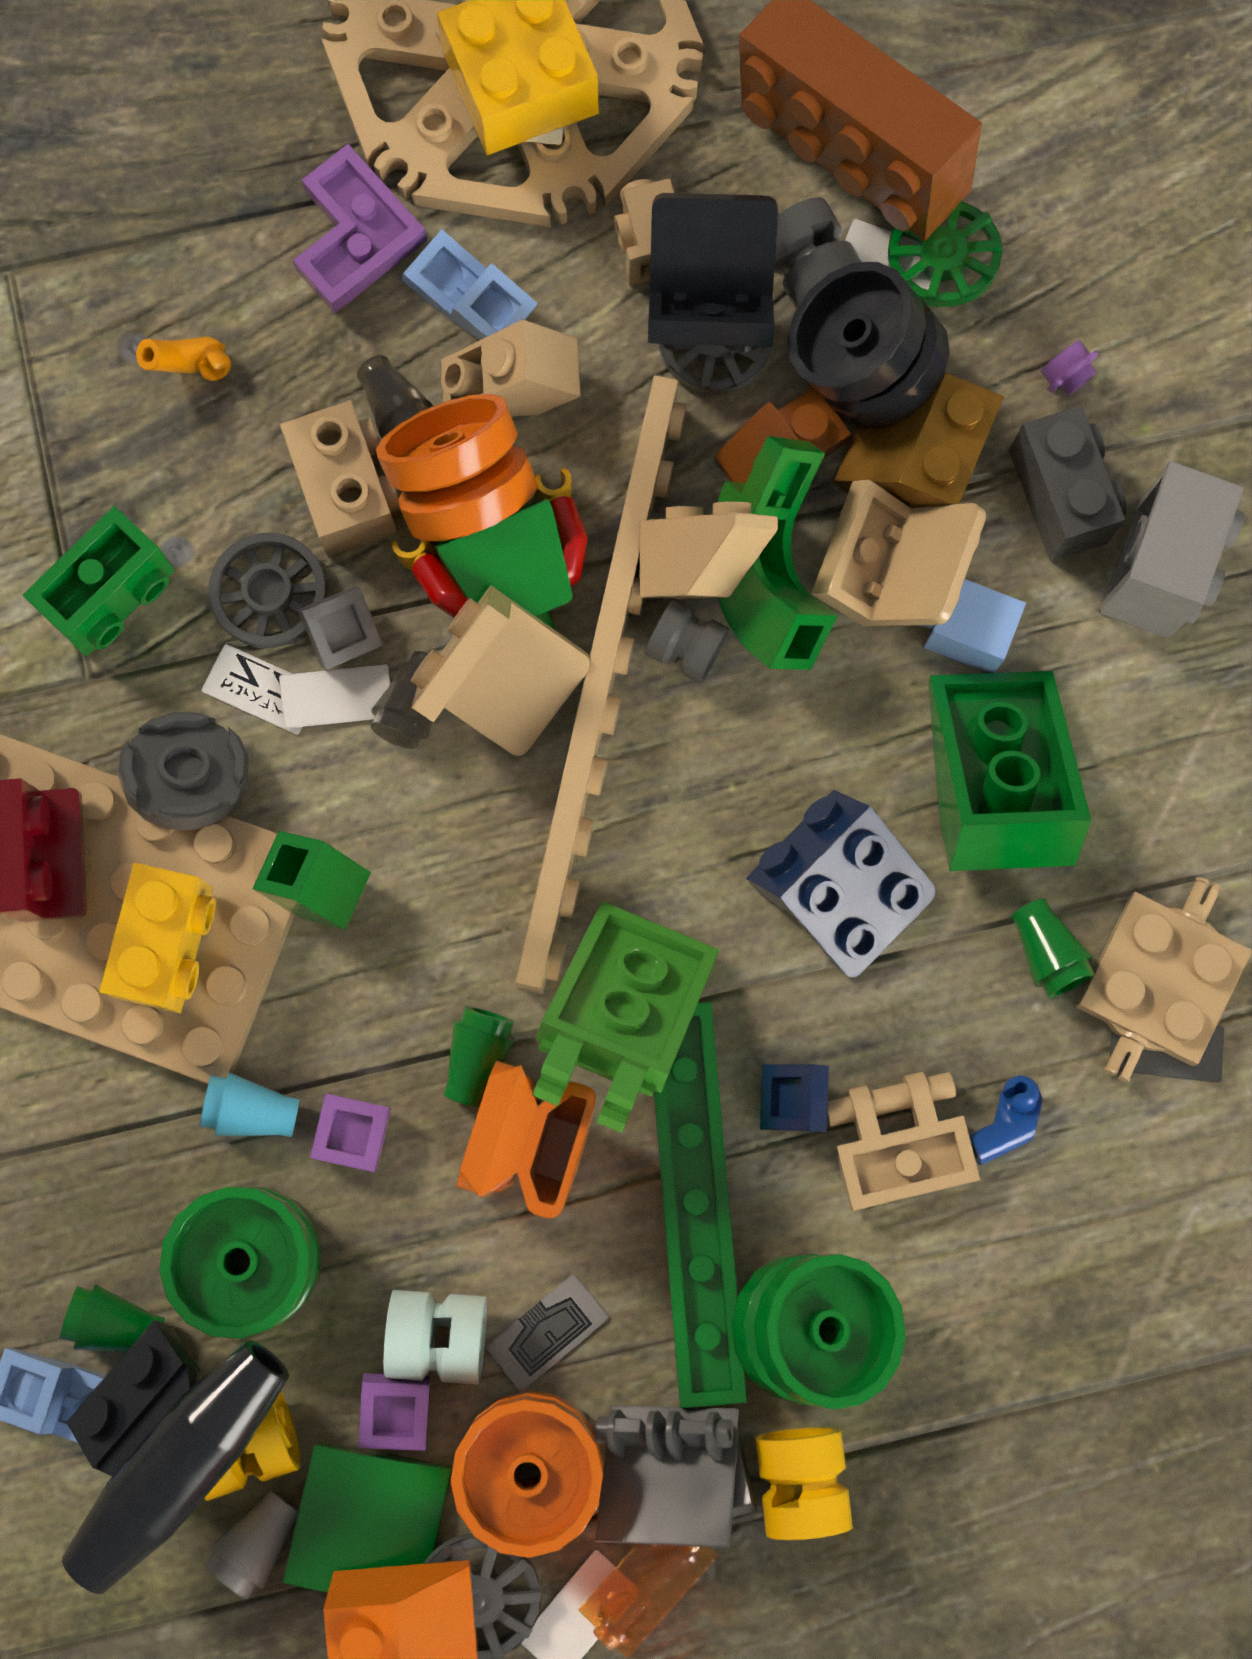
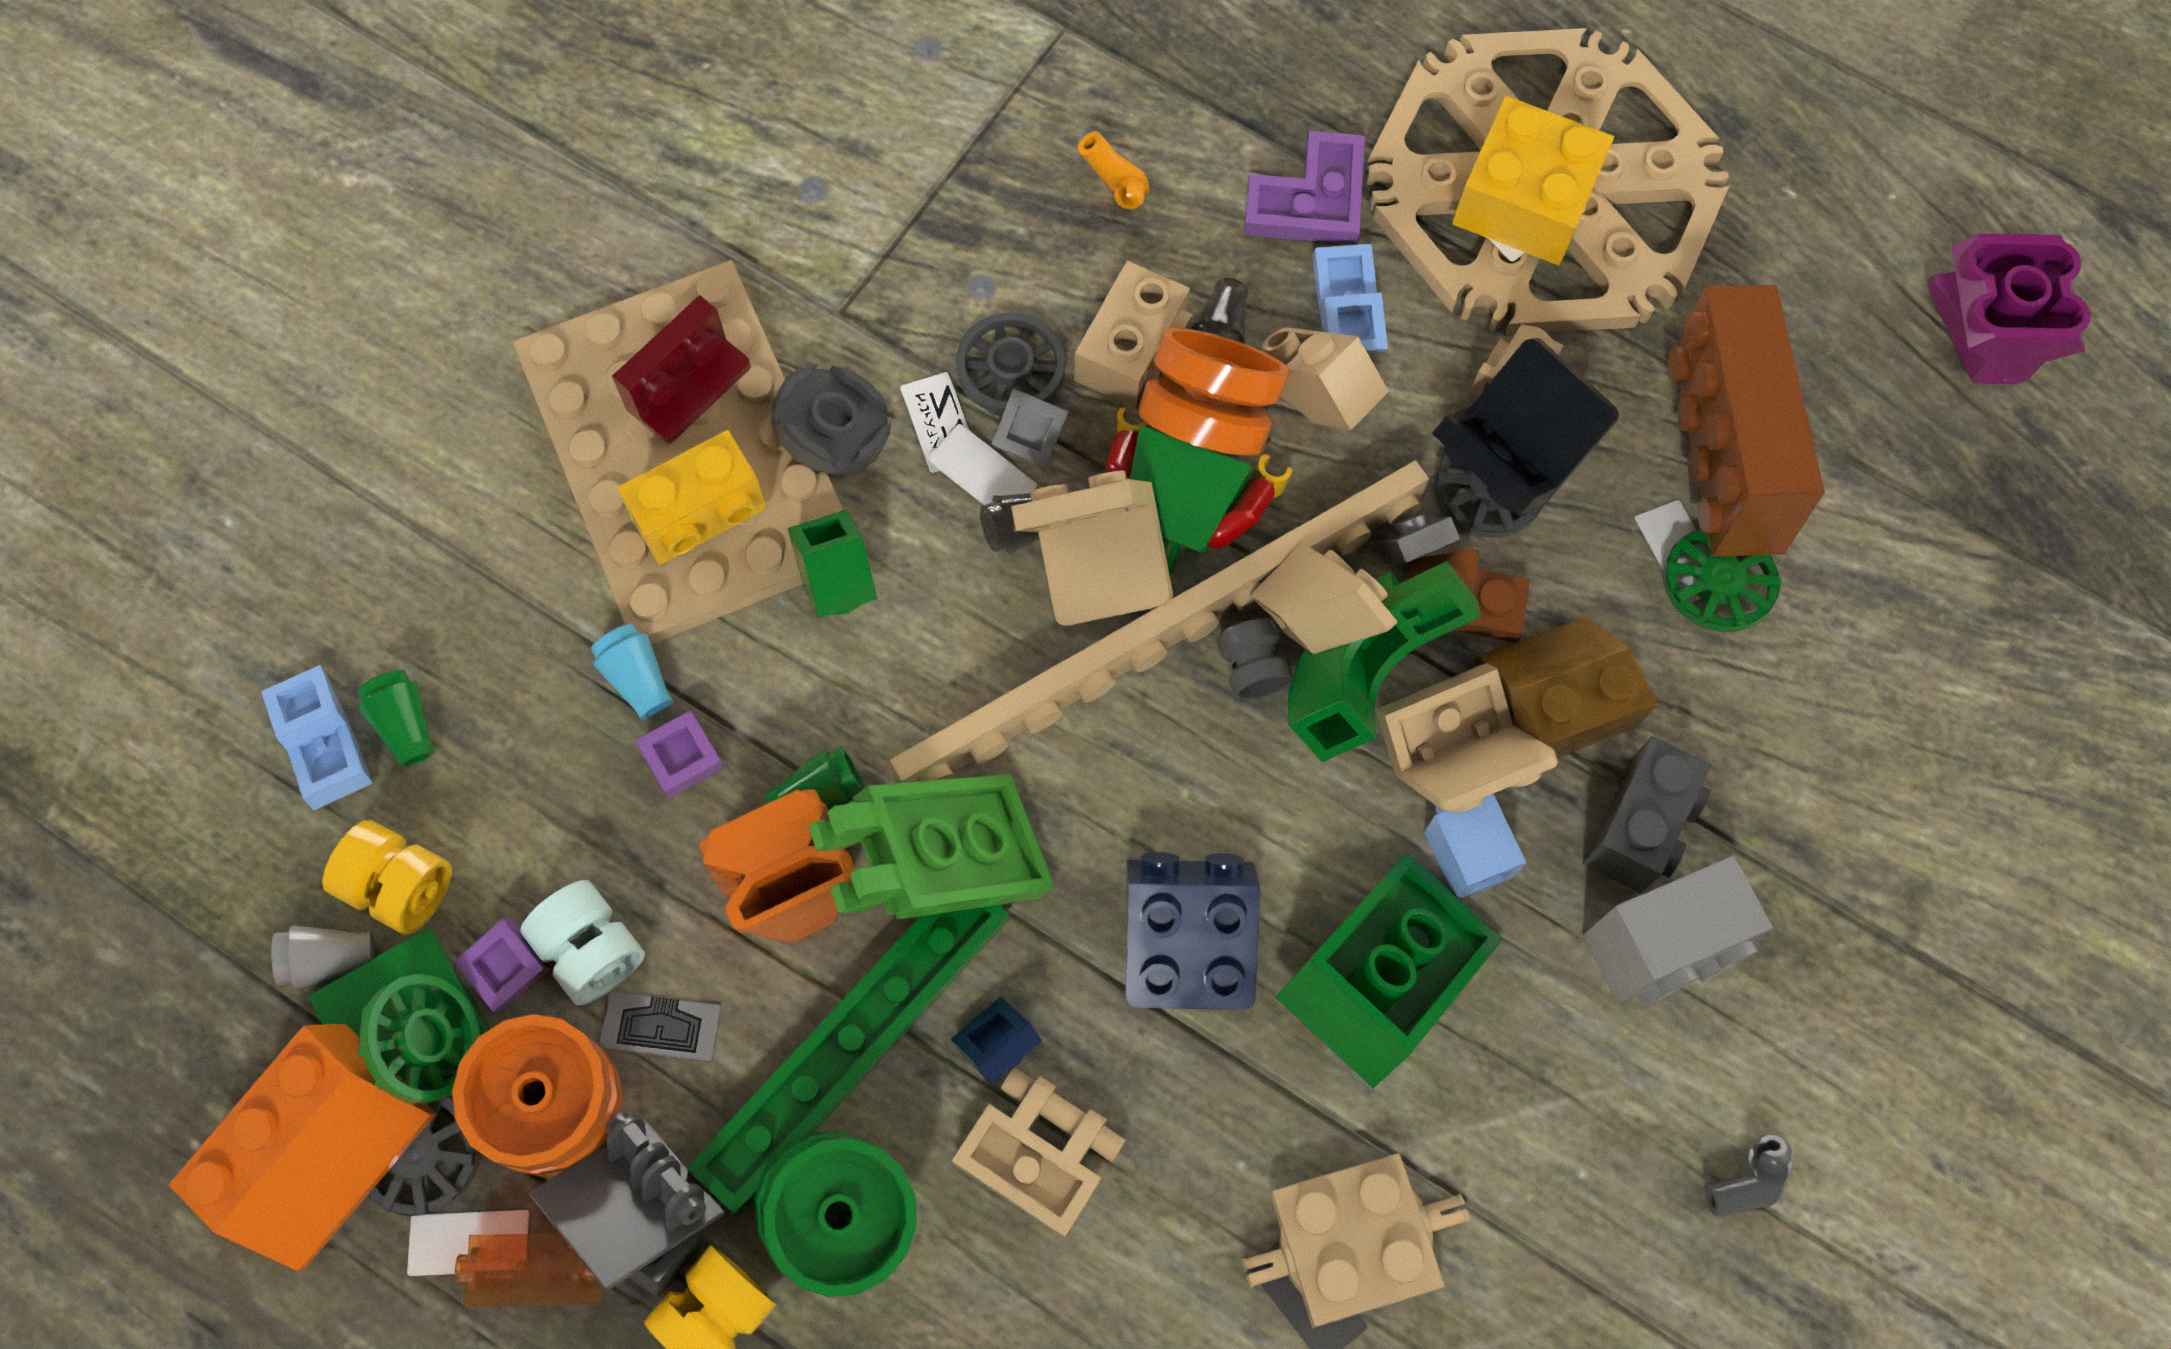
camera: 45 degrees right, 10 degrees down
(101, 582) = (905, 252): green brick -> none
(162, 1445) = (335, 813): black plate -> none
(200, 1267) = (517, 758): green wheel -> none
(405, 1527) = (416, 1037): none -> green wheel
(710, 433) = (1417, 537): none -> flat silver plate
(809, 247) = (1616, 491): dark grey wheel -> none
(868, 344) = (1592, 578): black wheel -> none
(1013, 1123) = (1135, 1226): blue arm -> none
(1052, 951) = (1291, 1134): green cone -> none
(1070, 368) = (1735, 741): medium lavender plate -> none

